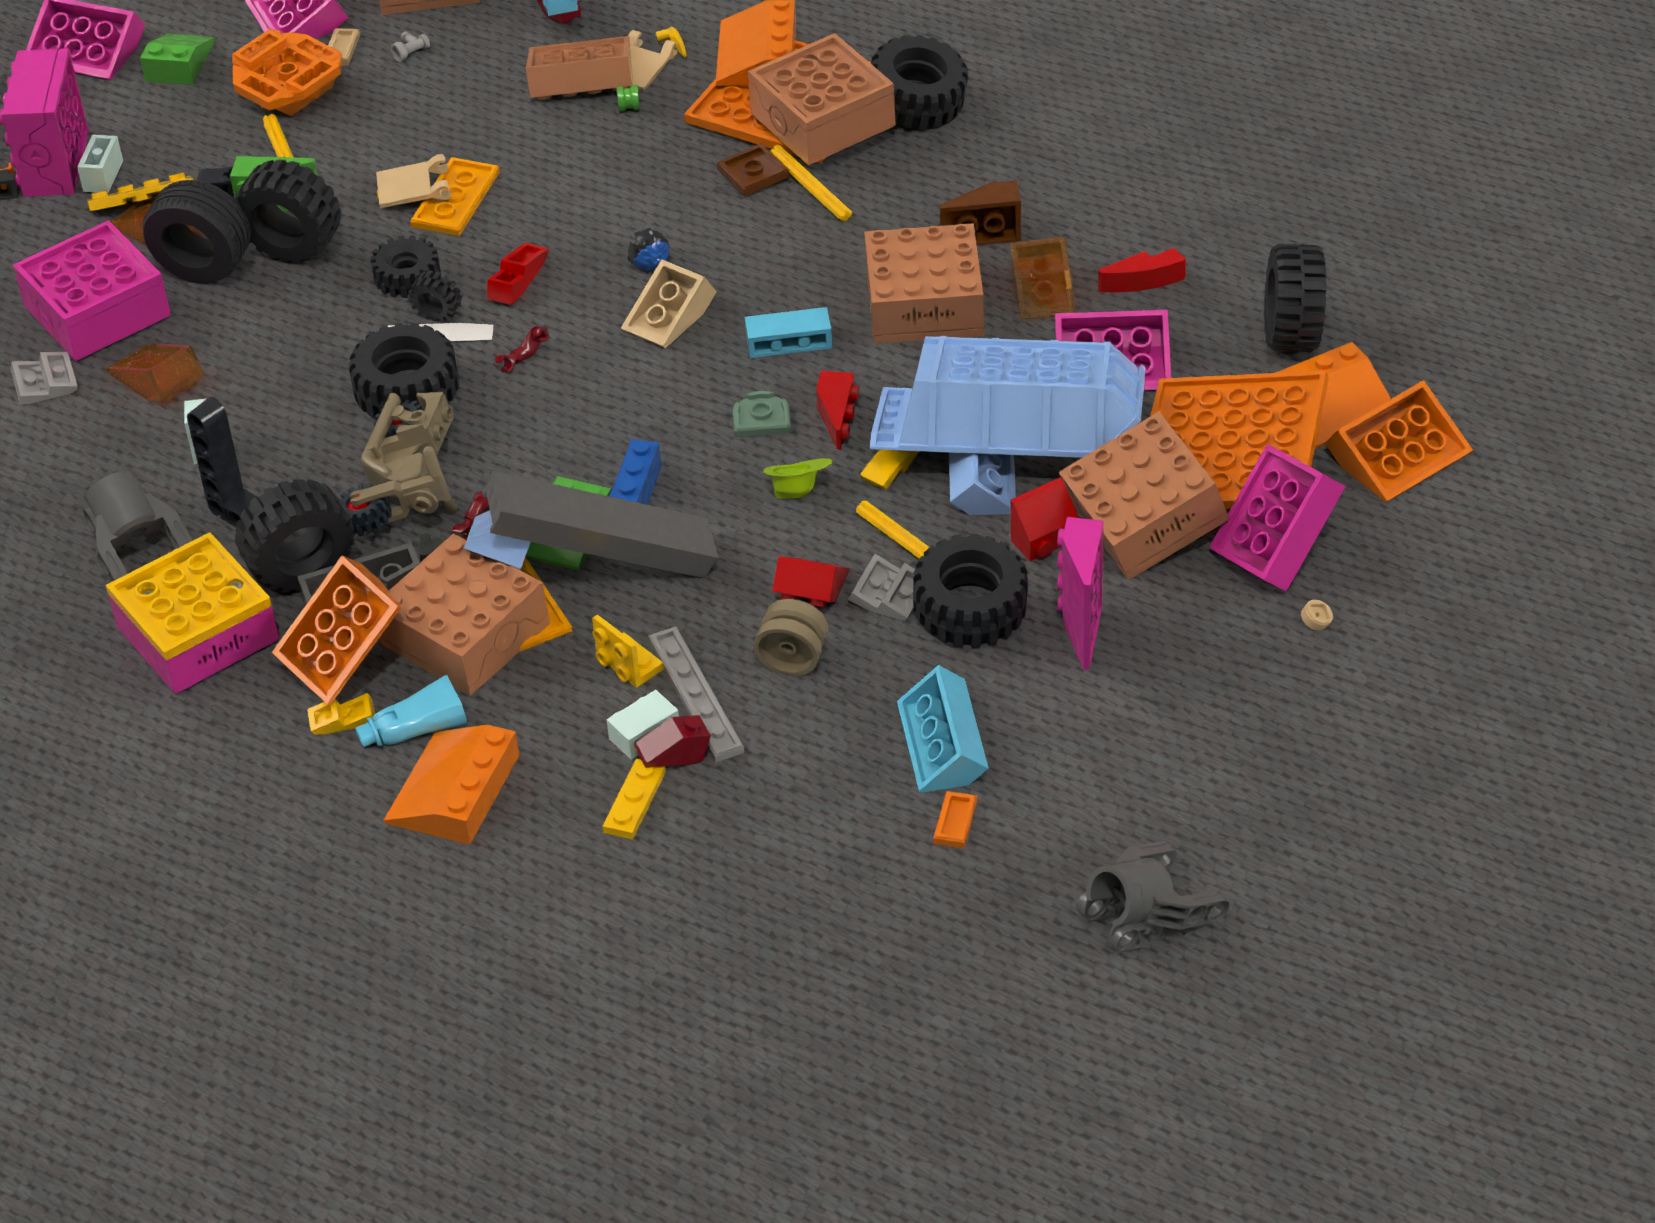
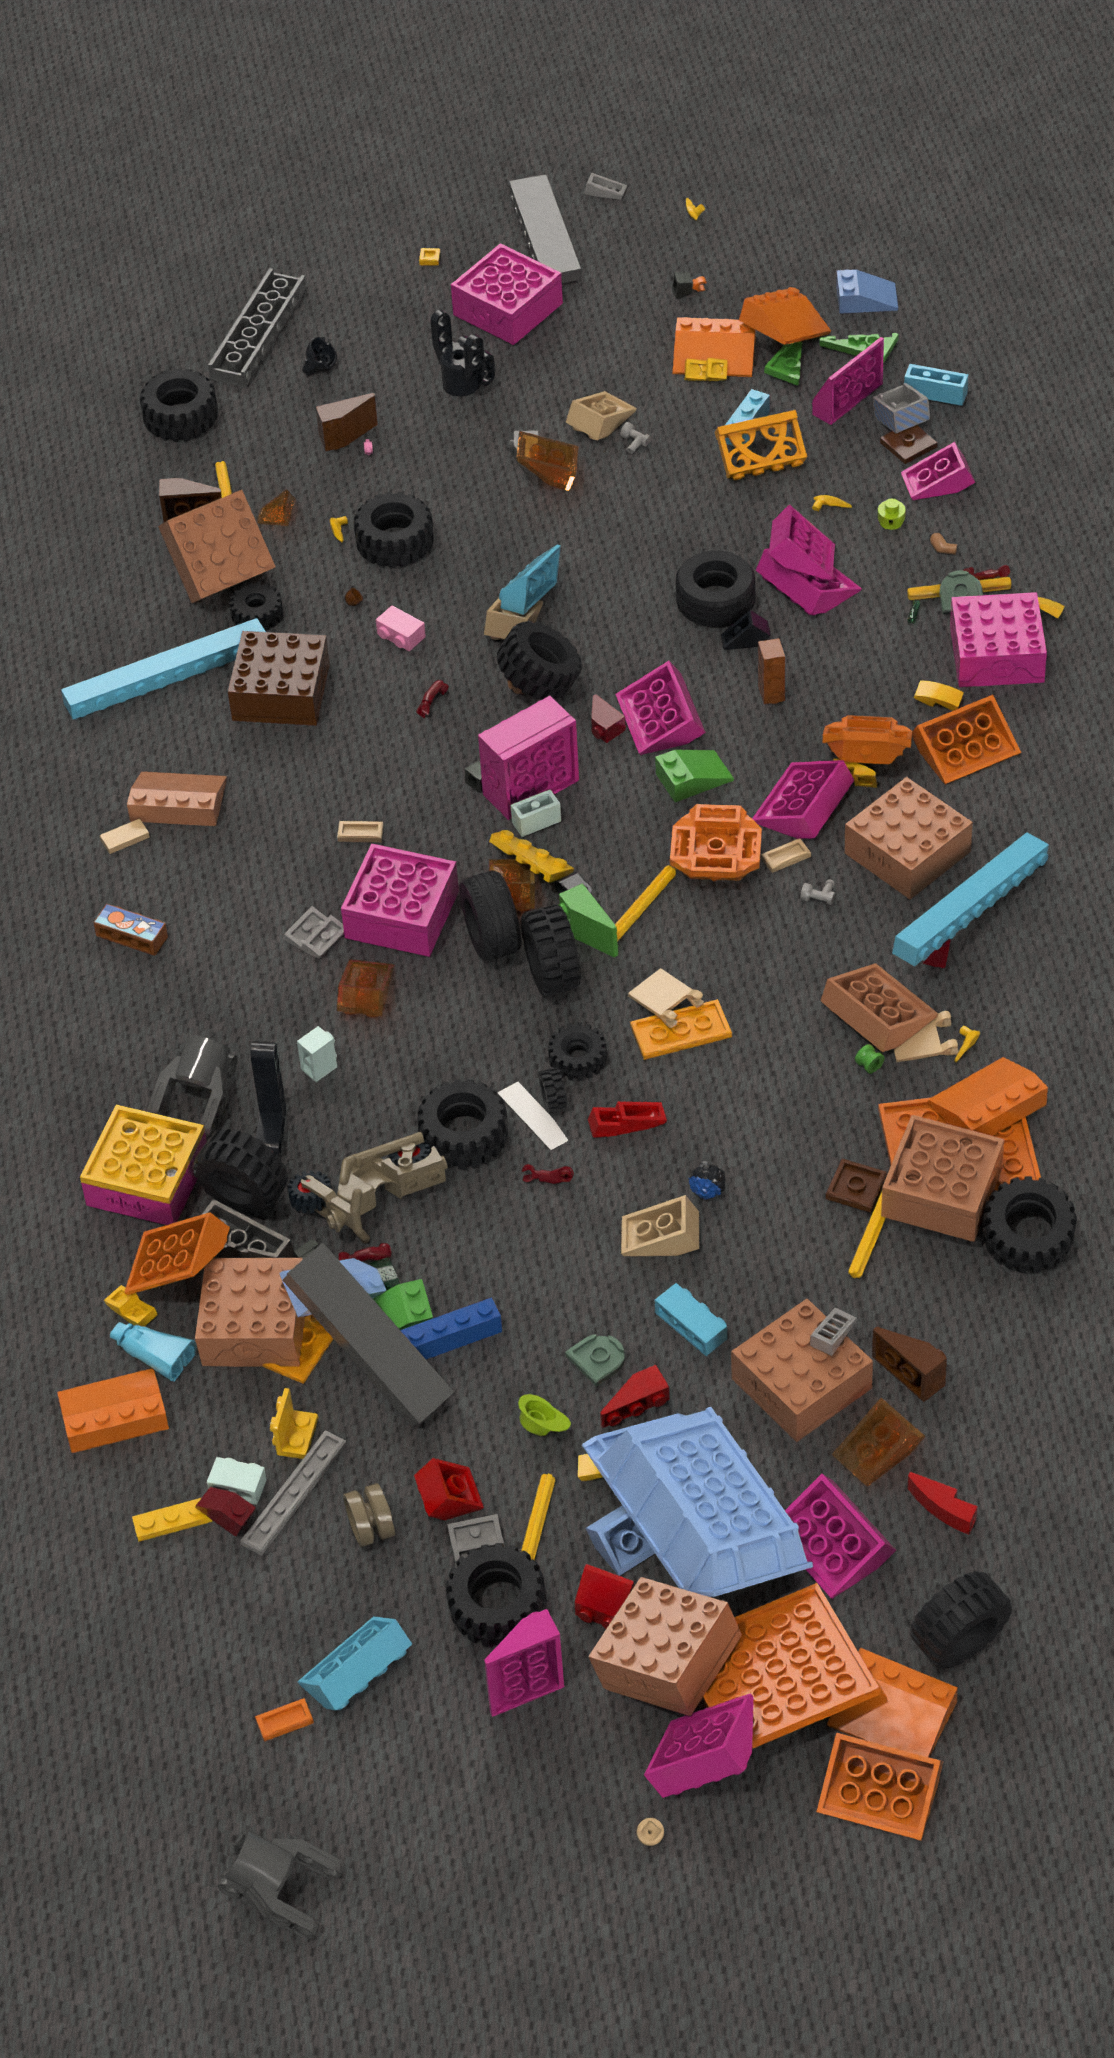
camera: 55 degrees right, 5 degrees up
(924, 226) = (827, 1345): none -> light grey slope

